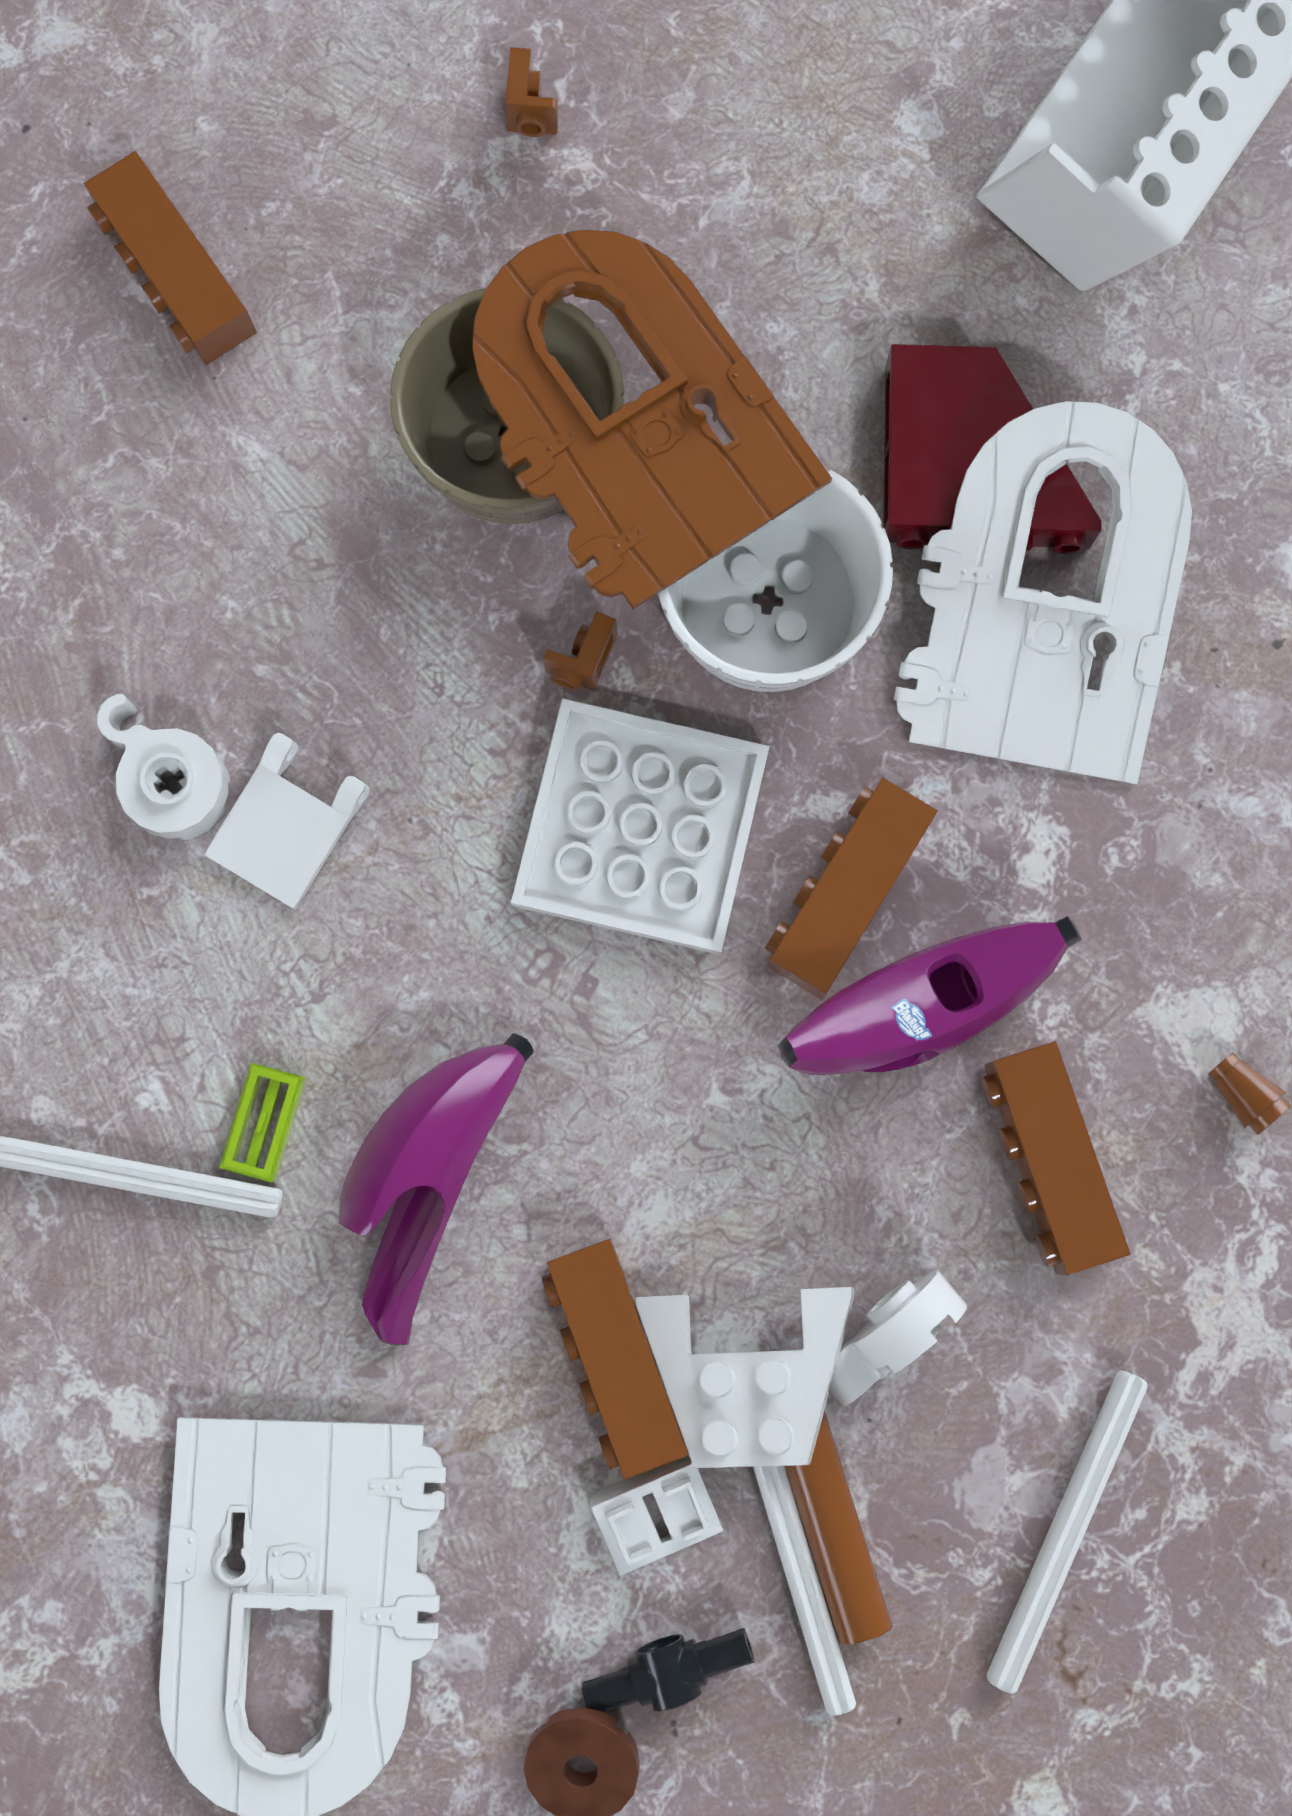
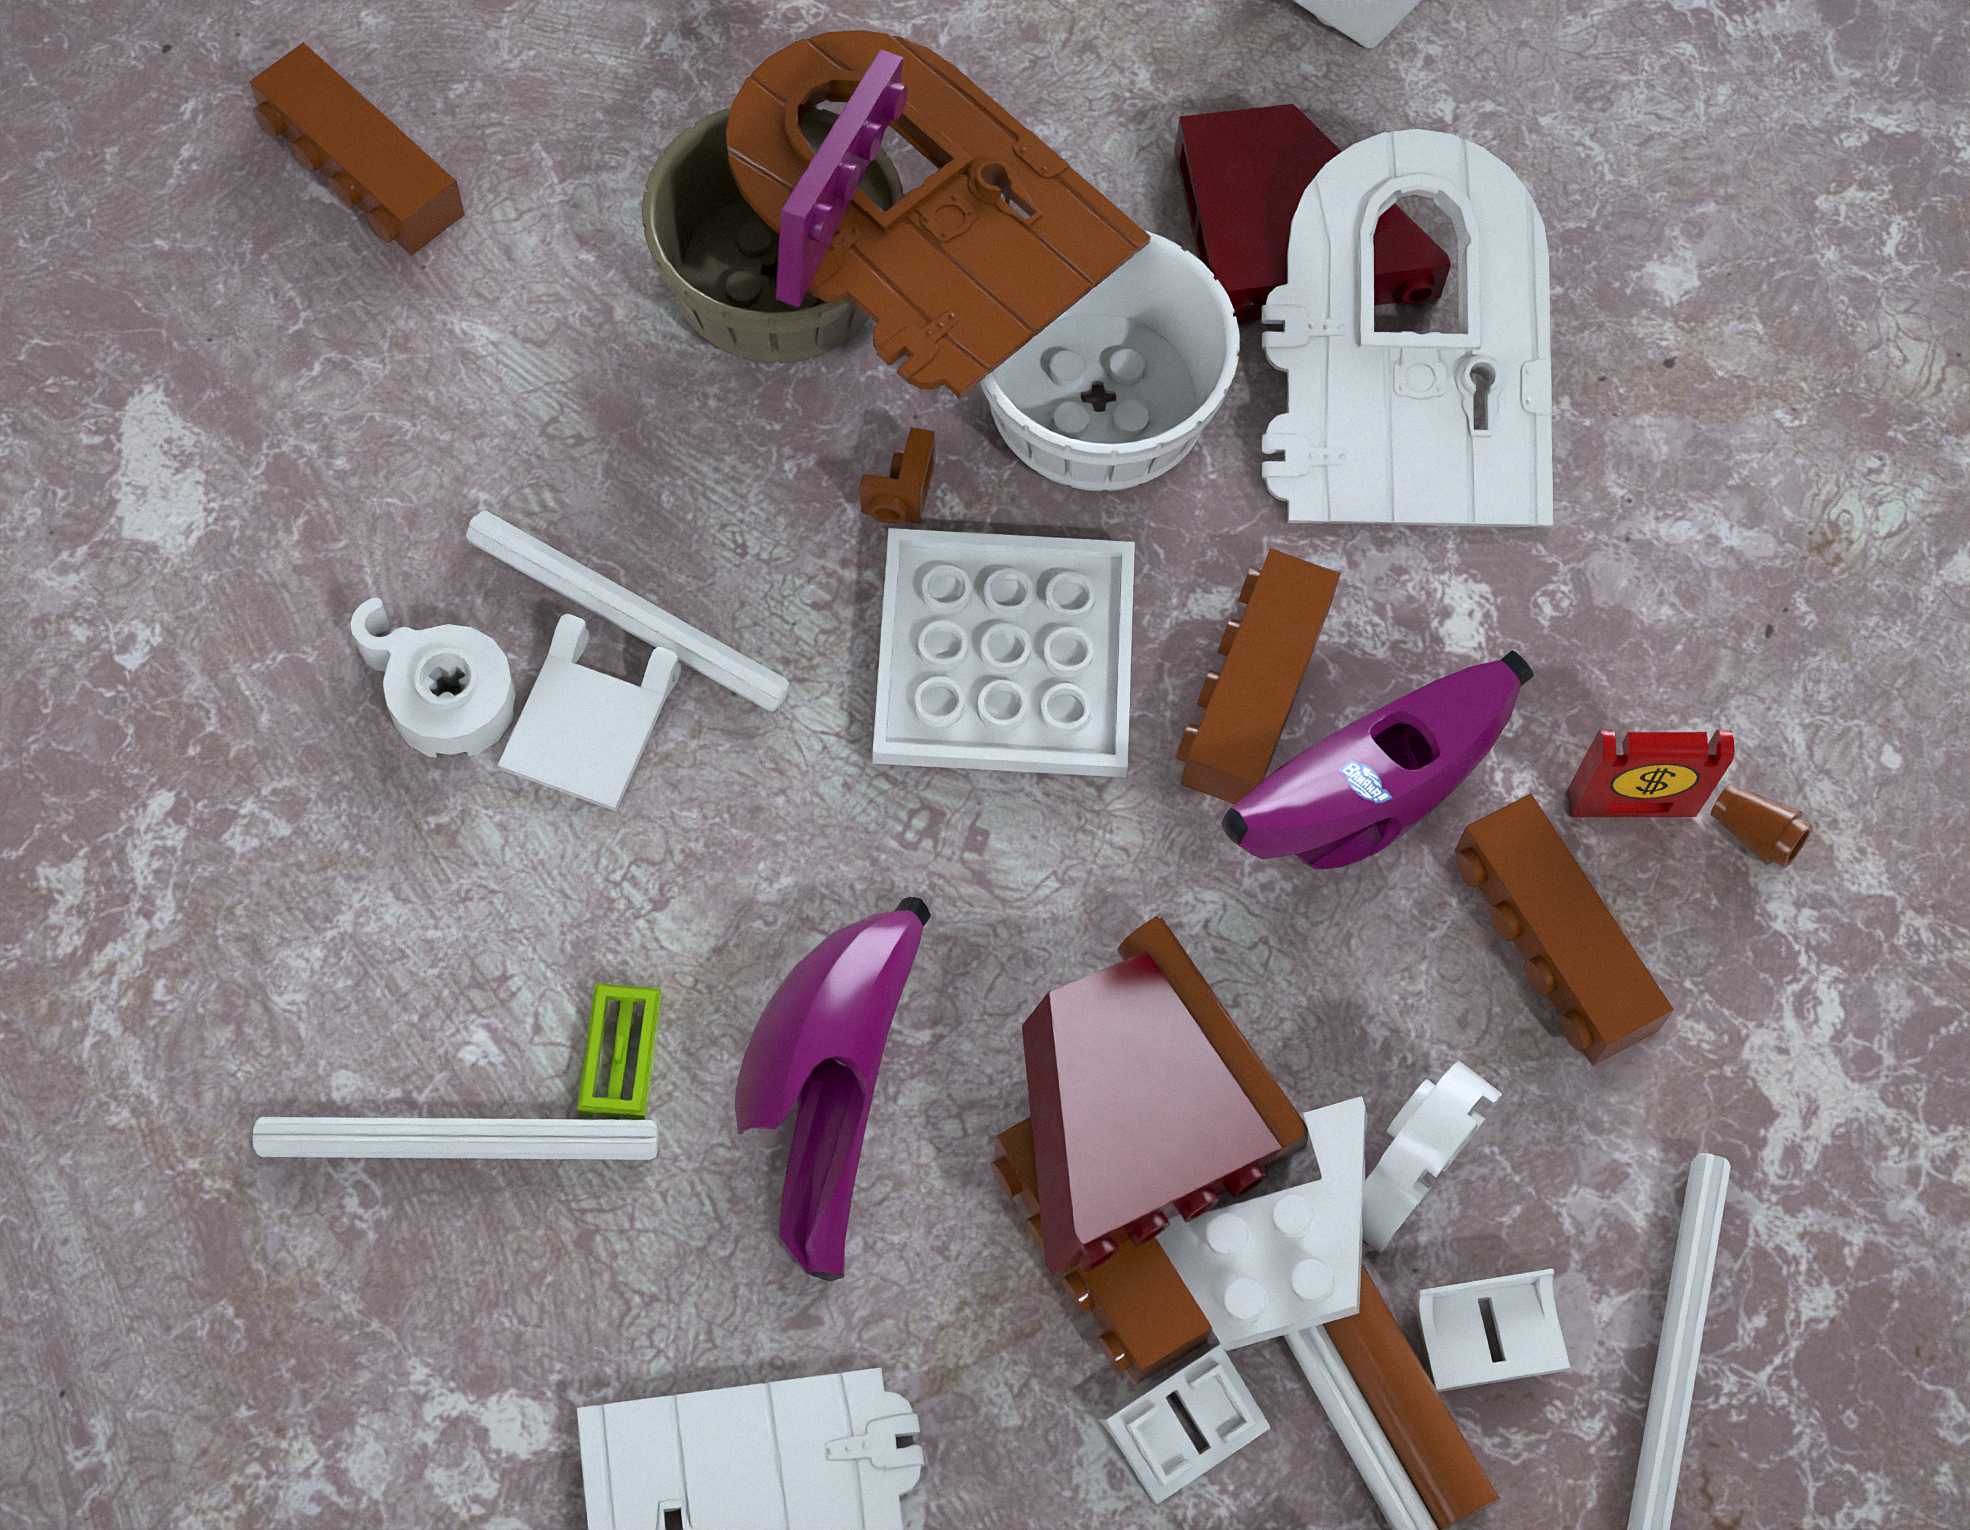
camera: 15 degrees left, 15 degrees down
(332, 733) = (627, 610): none -> white axle
(555, 388) = (834, 174): none -> magenta wing
(656, 1271) = (1130, 1115): none -> slope
(743, 1205) = (1221, 1033): none -> dark orange brick
(945, 1488) = (1523, 1322): none -> white piece
(1162, 1044) = (1654, 776): none -> red container

